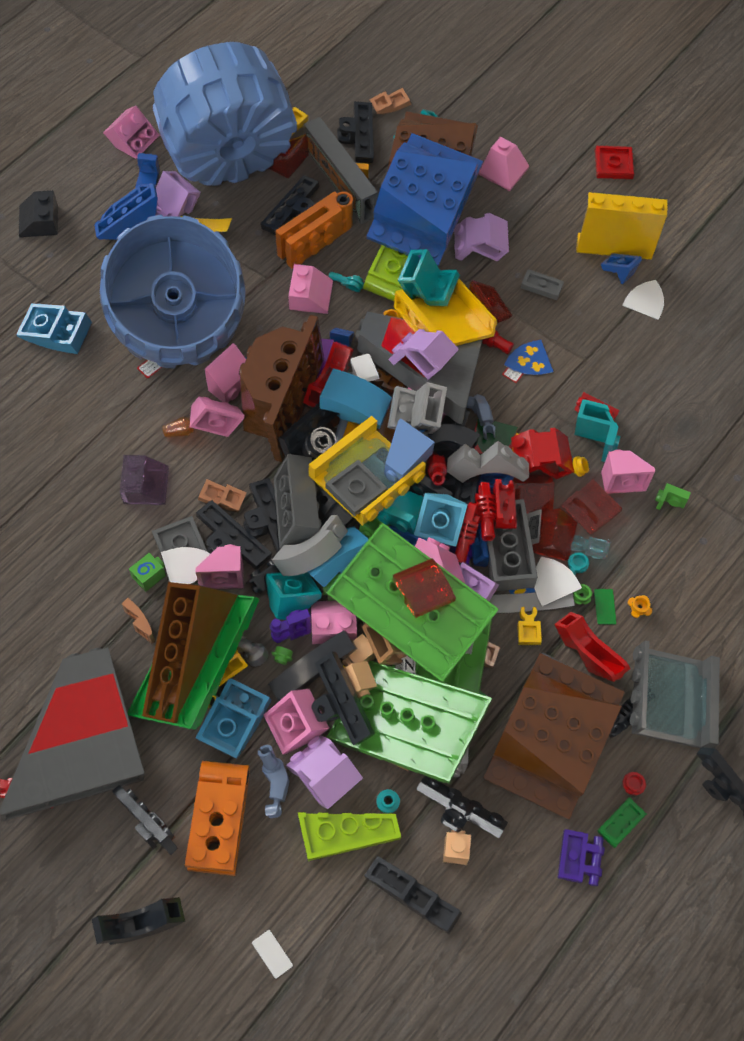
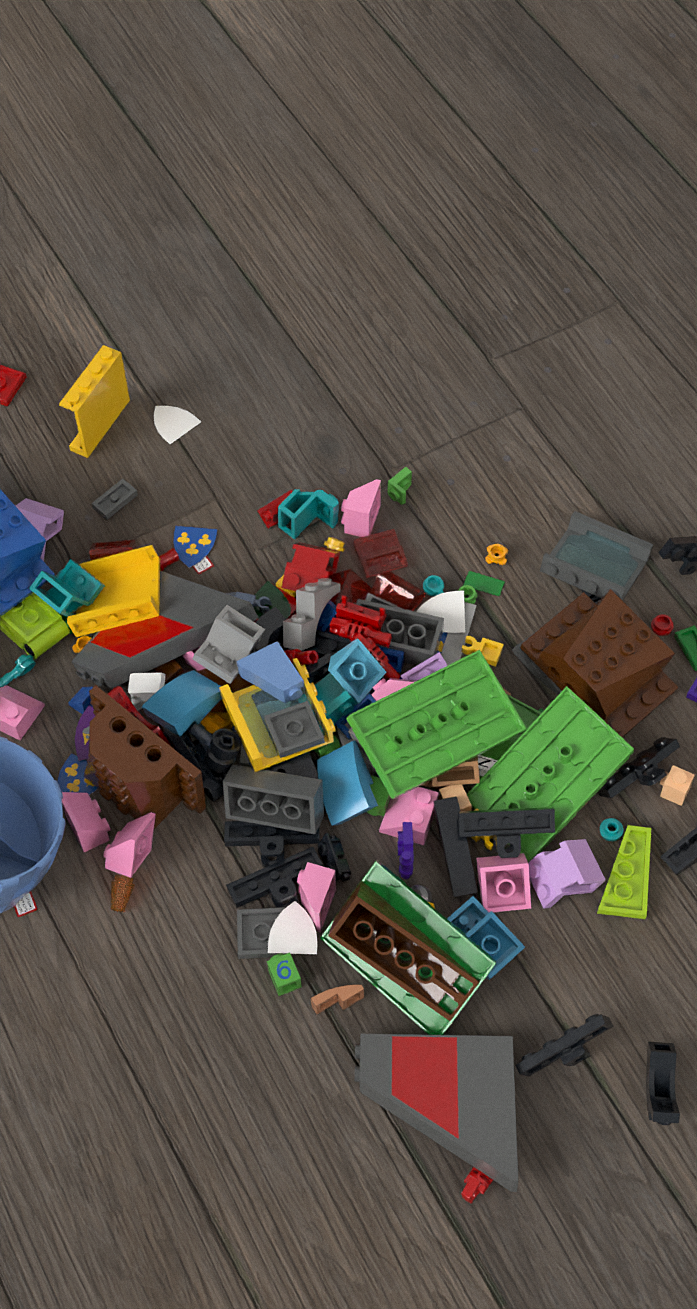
camera: 65 degrees left, 5 degrees down
(143, 480) = (171, 948): clear purple slope -> none
(220, 795) = (556, 975): orange hinge -> none
(225, 497) = (226, 870): nougat slope -> none
(276, 774) = (557, 917): sand blue arm -> none
(282, 655) = (428, 873): bright green plate -> none
(291, 593) = (366, 840): teal slope -> none
(313, 552) = (342, 800): light grey arch -> none
(361, 678) = (488, 801): light nougat brick -> none
(424, 587) = (436, 700): clear red slope -> none
(425, 350) = (164, 612): lavender piece -> none
(593, 547) = (423, 566): clear light blue plate -> none
(594, 653) = (533, 605): red arch -> none
(622, 264) = (130, 421): blue slope -> none

